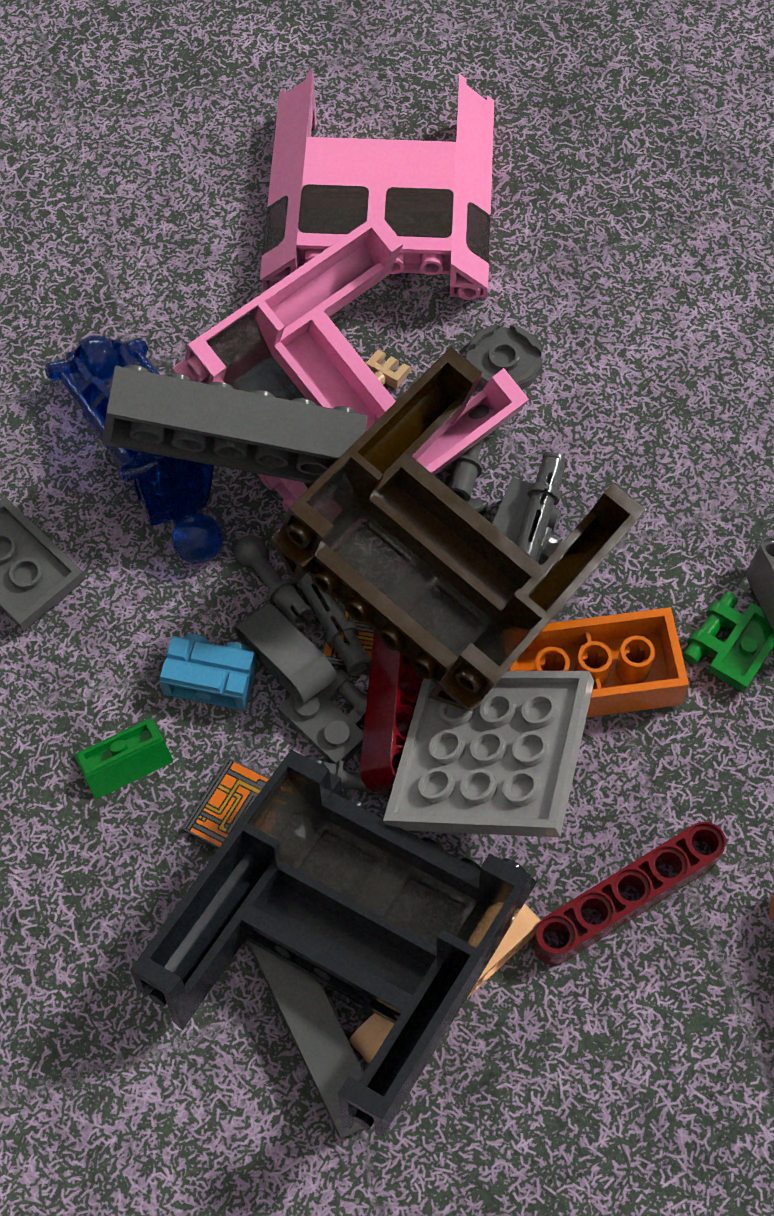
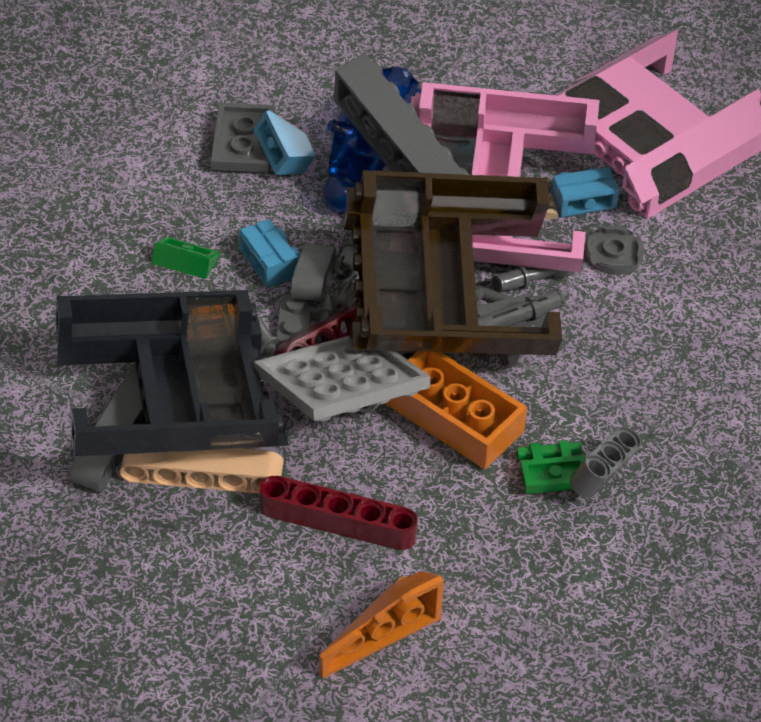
camera: 45 degrees right, 15 degrees down
(77, 535) = (284, 145): none -> dark azure slope
(411, 320) = (584, 191): none -> dark azure brick

